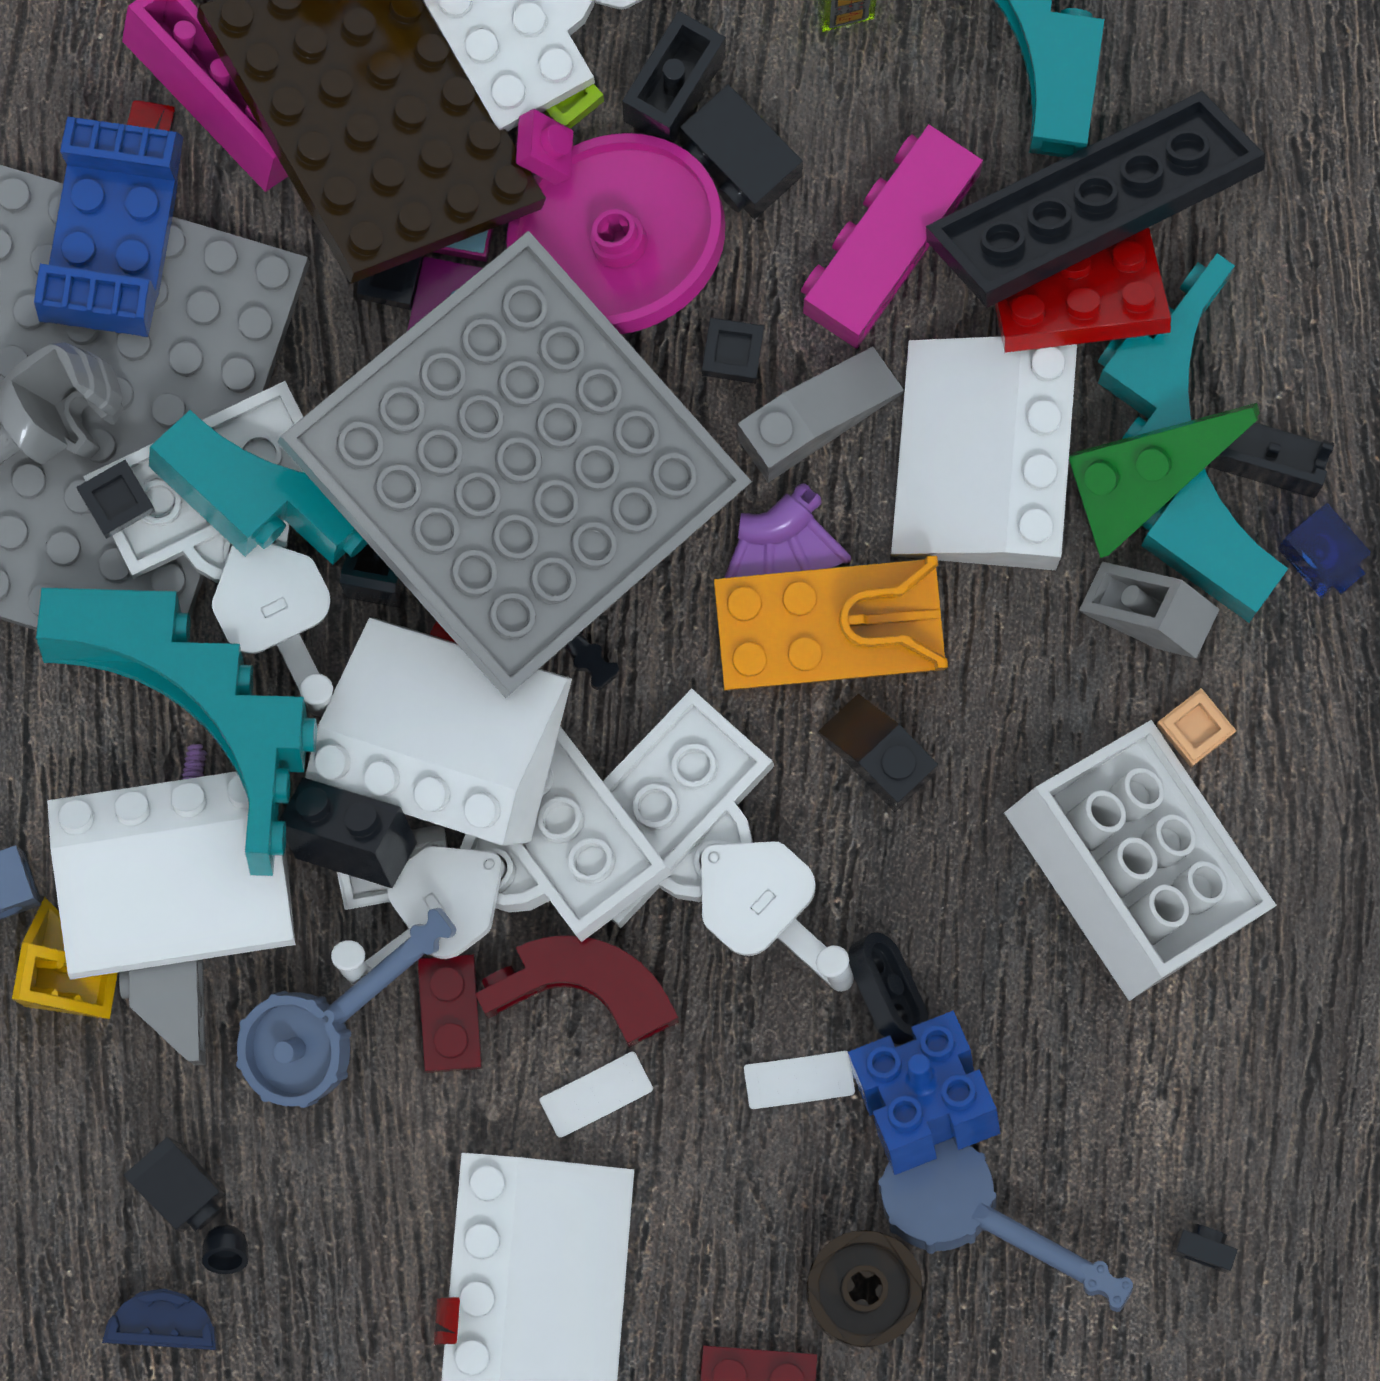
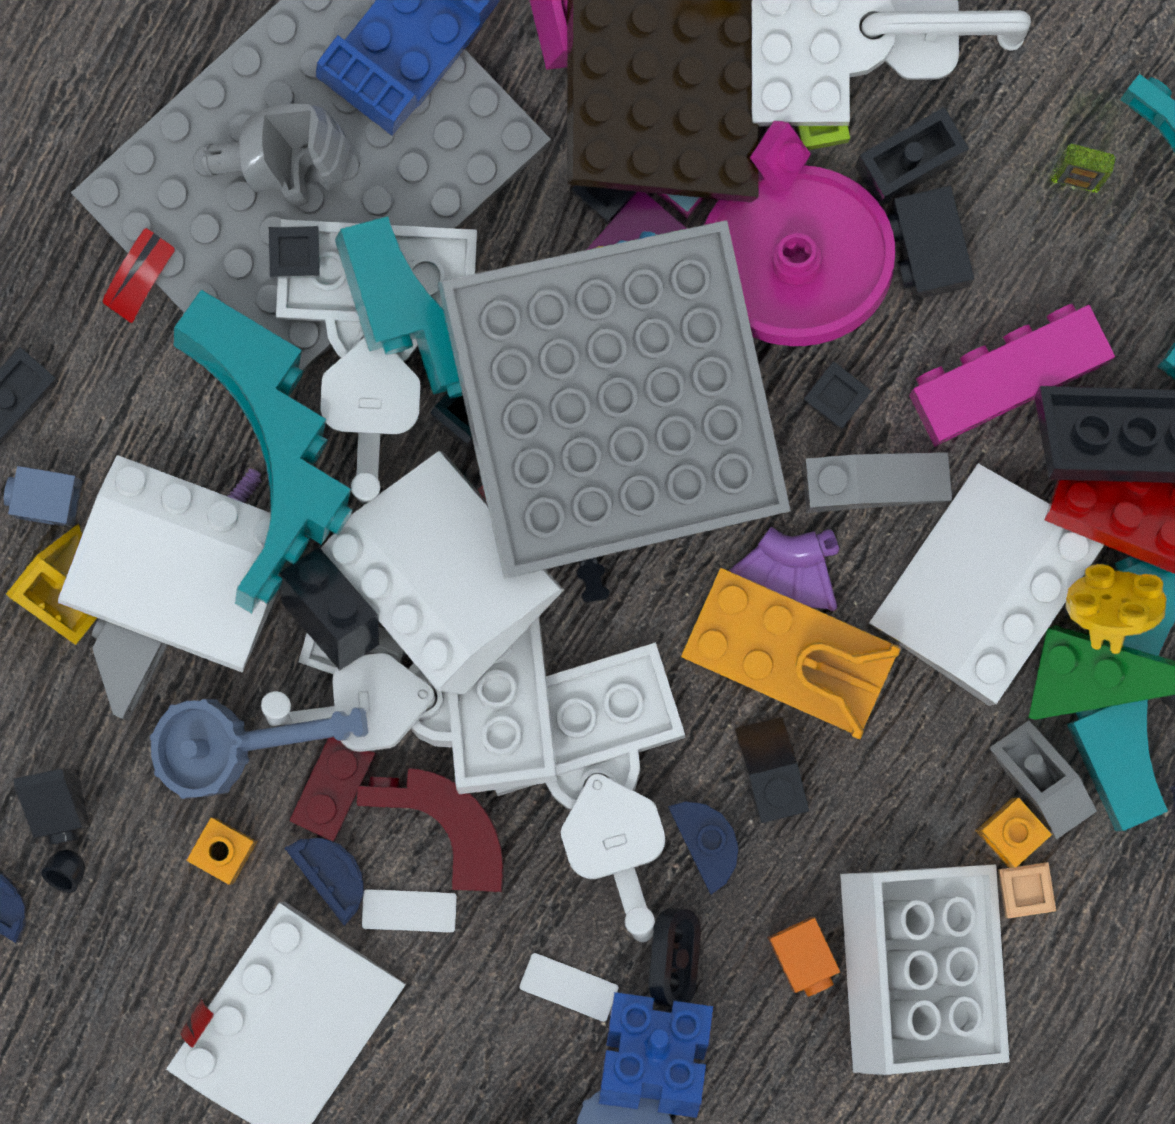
camera: 30 degrees right, 5 degrees up
(390, 1151) = (239, 847): none -> light orange plate
(496, 1098) = (332, 873): none -> dark blue plate
(855, 855) = (709, 841): none -> dark blue plate
(1015, 914) = (805, 957): none -> orange brick
(1121, 393) = (1115, 604): none -> yellow plate
(1150, 676) = (1013, 832): none -> light orange brick

